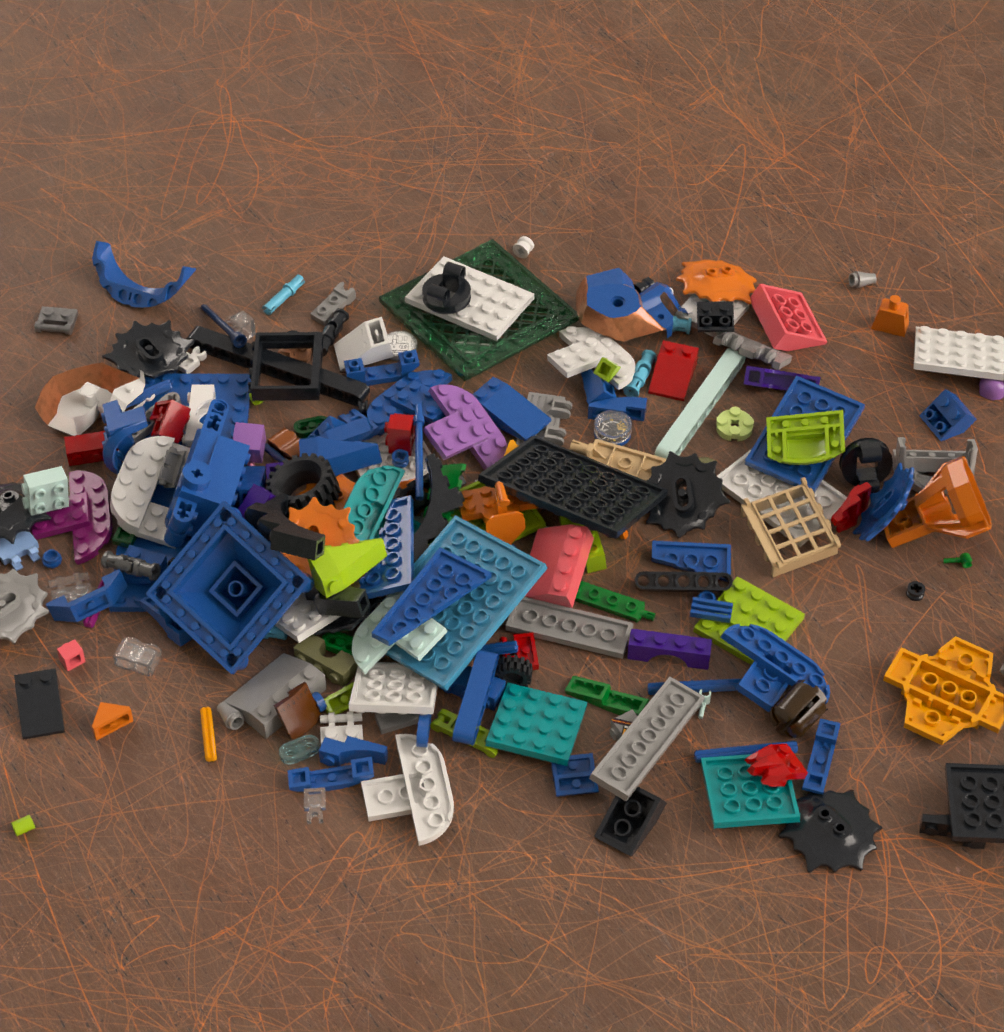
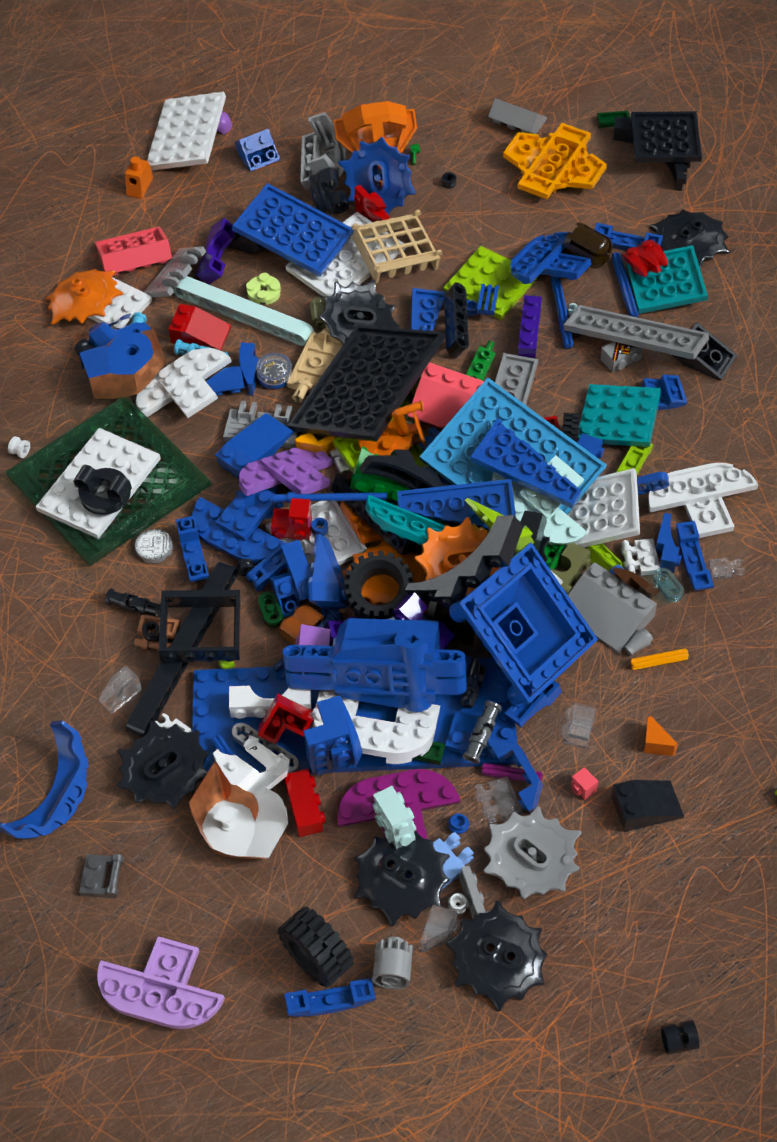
camera: 90 degrees left, 5 degrees up
(169, 476) = (358, 703): light grey hinge -> none
(238, 339) = (154, 677): dark blue piece -> none
(288, 290) = (56, 642): medium azure pin -> none
(337, 299) = (91, 607): light grey plate -> none
(365, 342) = (162, 565): white slope -> none
(475, 697) = (612, 448): blue beam -> none
(602, 696) = (581, 372): green slope -> none
(606, 369) = (215, 362): lime slope -> none
(715, 316) = (144, 290): black slope -> none
(805, 437) = (308, 221): lime slope -> none
(860, 279) = (83, 200): light grey cone -> none

